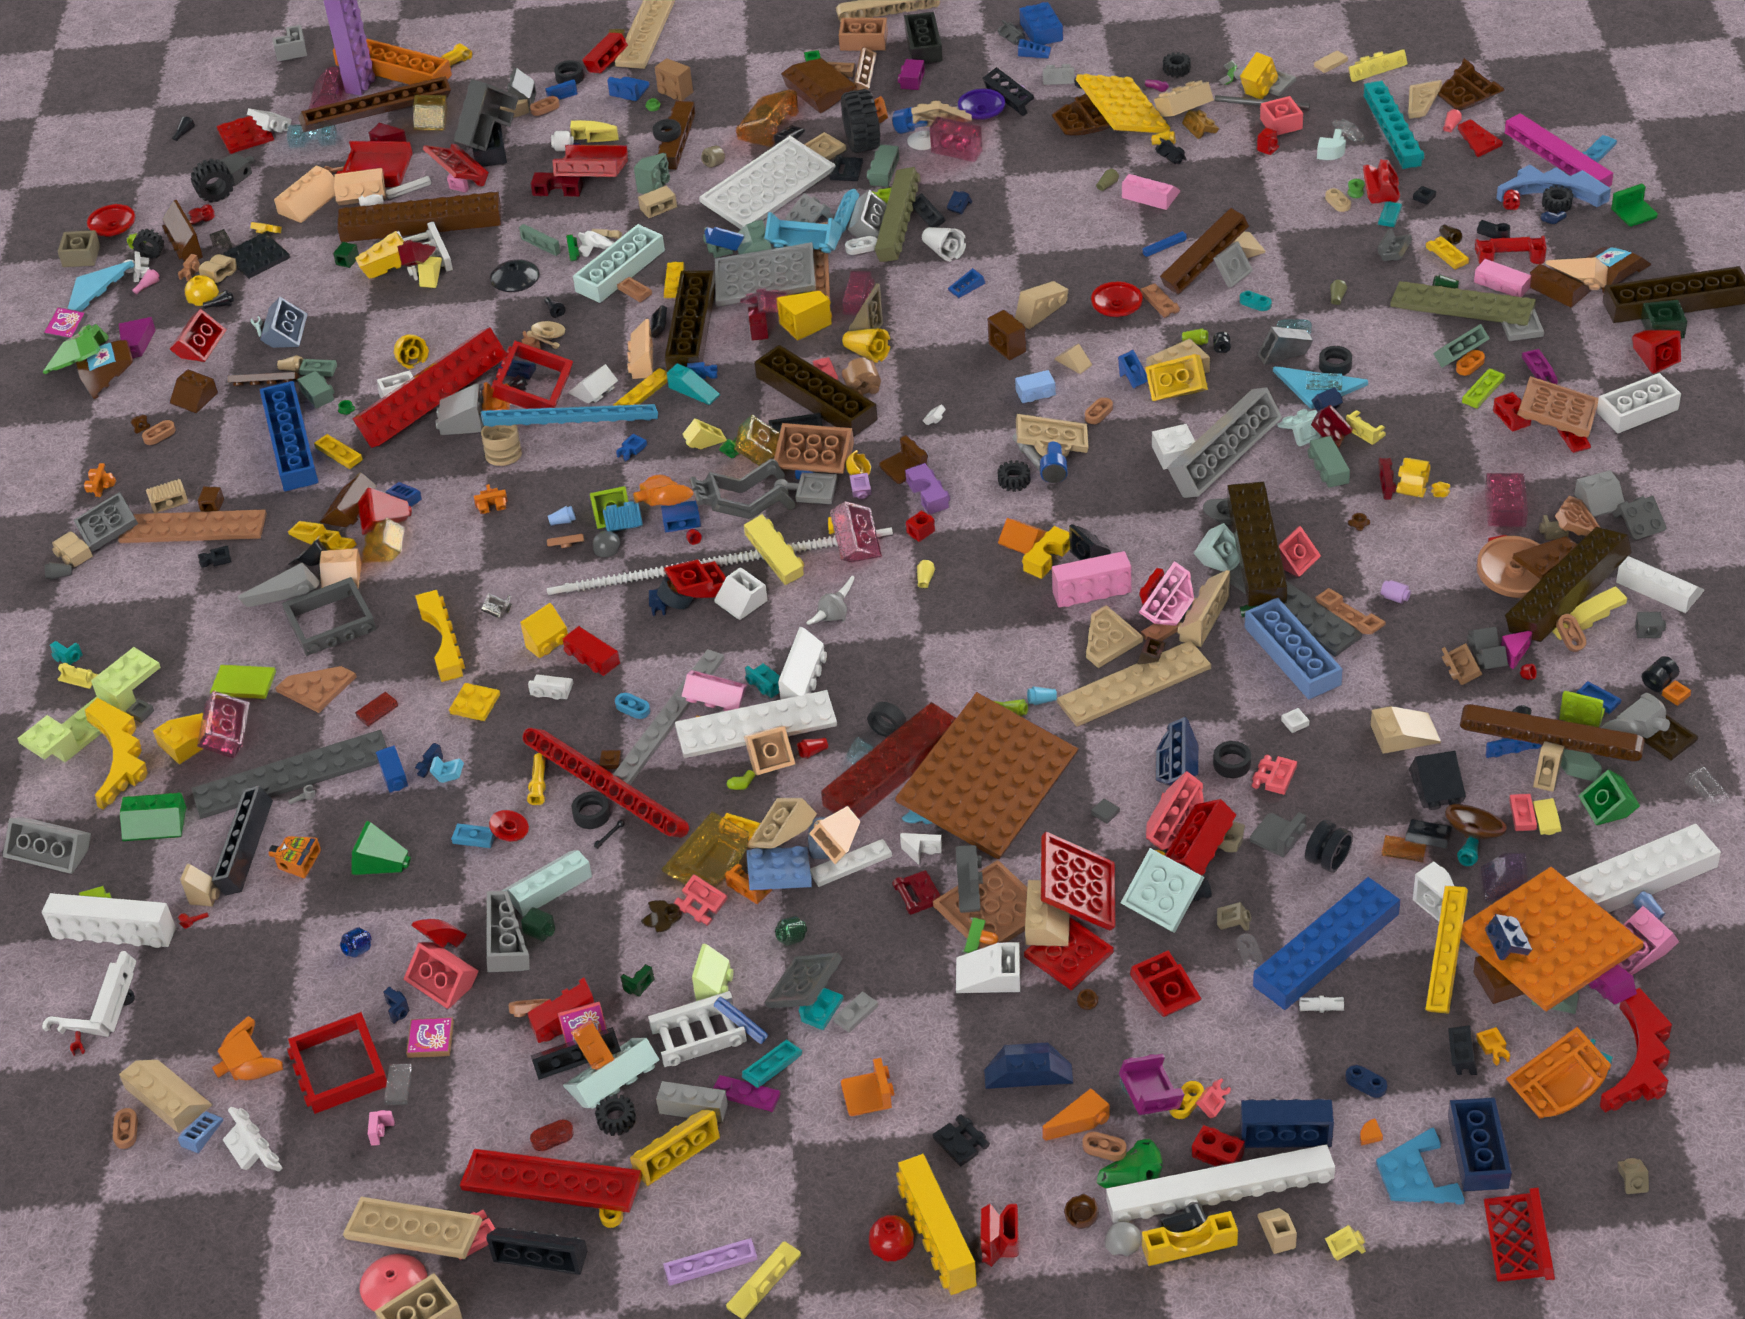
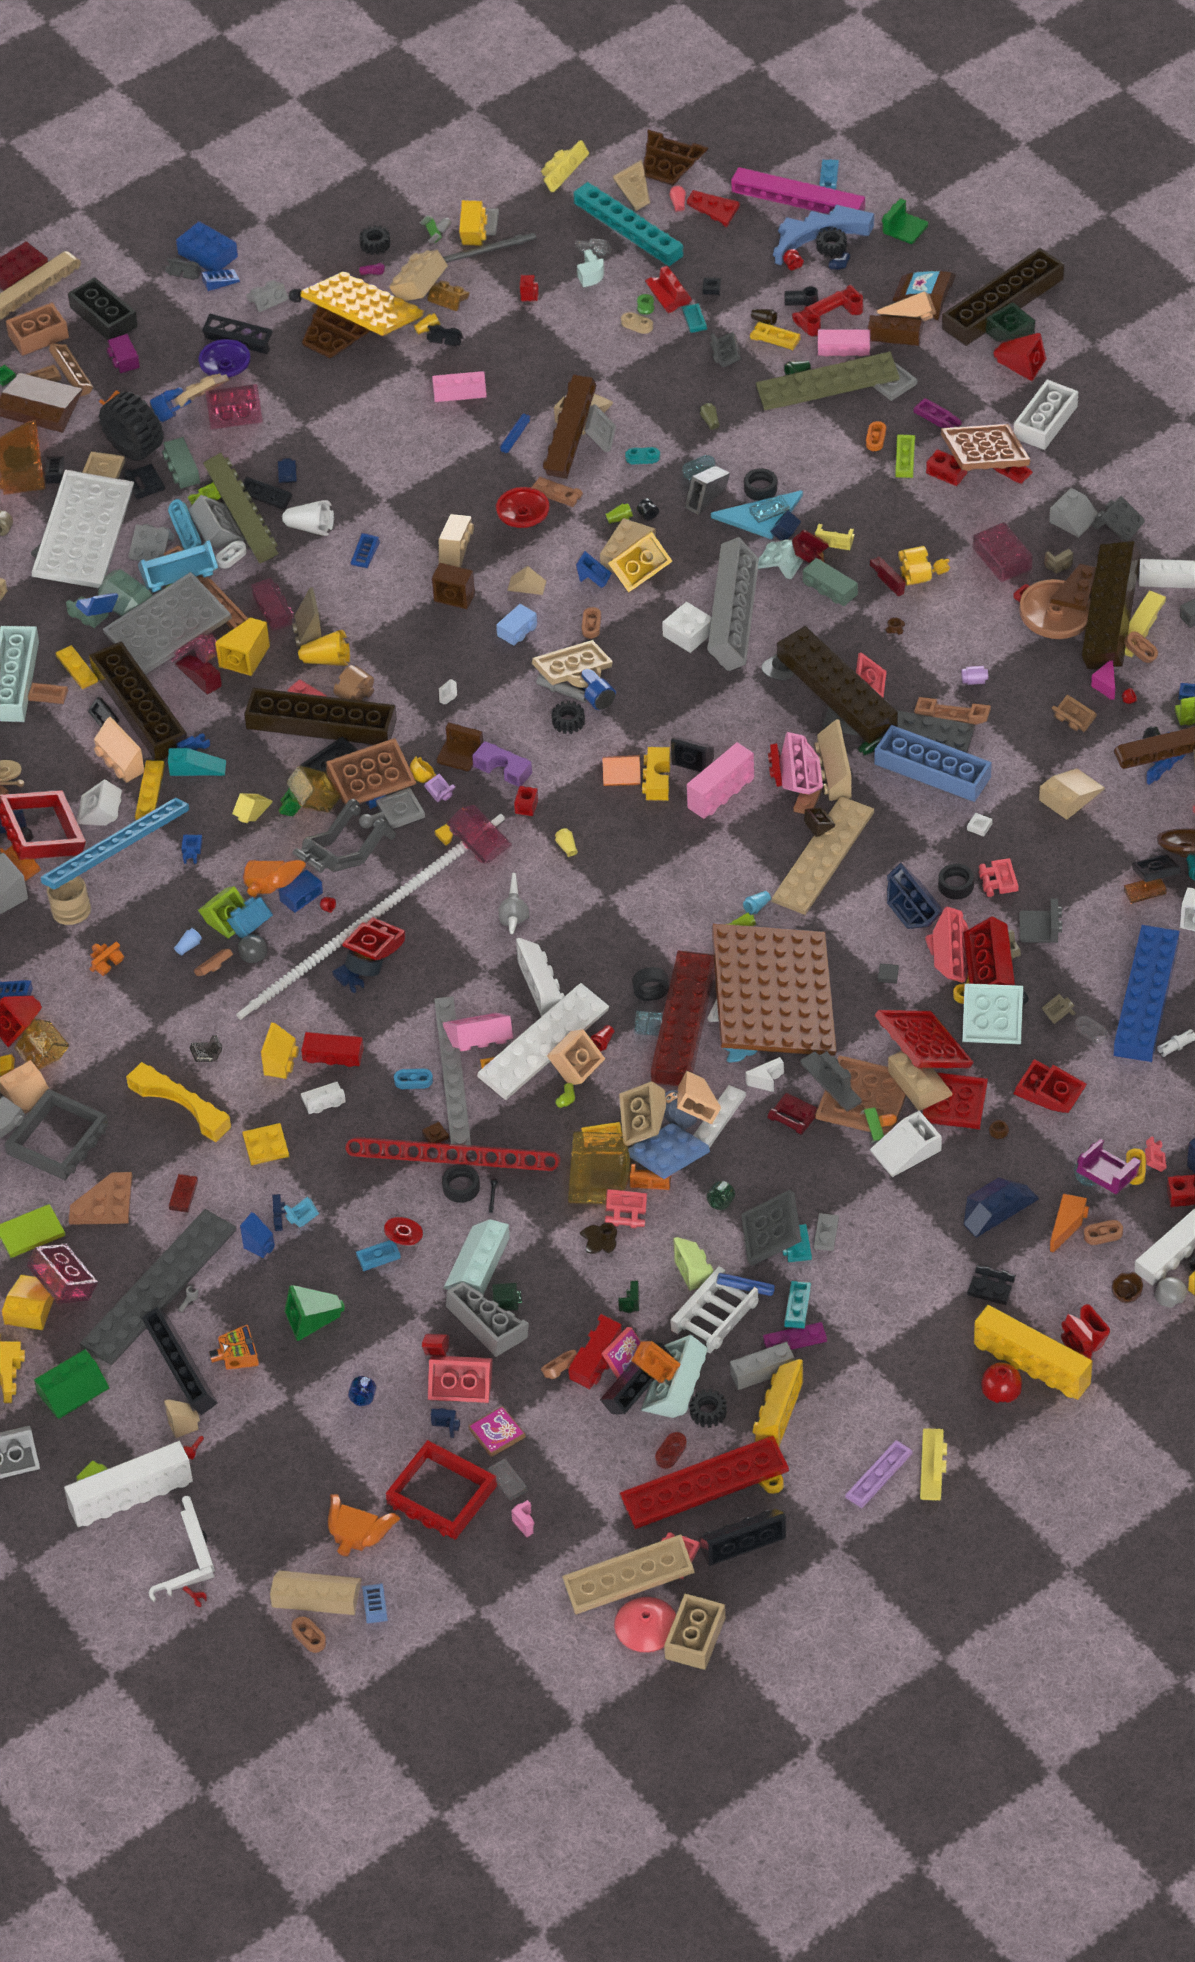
camera: 35 degrees left, 5 degrees up
(247, 1143) = (424, 1591): white bracket -> none
(537, 784) = (393, 1186): yellow pin -> none
(741, 594) = (423, 935): white slope -> none
(764, 679) = (509, 1000): teal bracket -> none
(774, 549) = (419, 882): light yellow brick -> none
(868, 1091) = (892, 1284): orange bracket -> none
(920, 140) = (191, 419): white dish -> none
(1108, 179) = (409, 388): olive cone -> none
(1109, 637) = (770, 824): tan plate -> none
(1133, 1166) = (1136, 1238): green piece -> none
(1218, 549) = (801, 704): light aqua slope -> none
(1281, 115) = (521, 256): coral slope -> none
(1328, 846) = (1092, 915): black wheel -> none
(1330, 61) = (517, 178): tan tile -> none
(1437, 779) = (1131, 821): black slope -> none
(1461, 346) = (860, 423): sand green brick -> none
(1486, 648) = (1081, 688): dark grey brick -> none
(1576, 517) = (1073, 543): nougat plate -> none

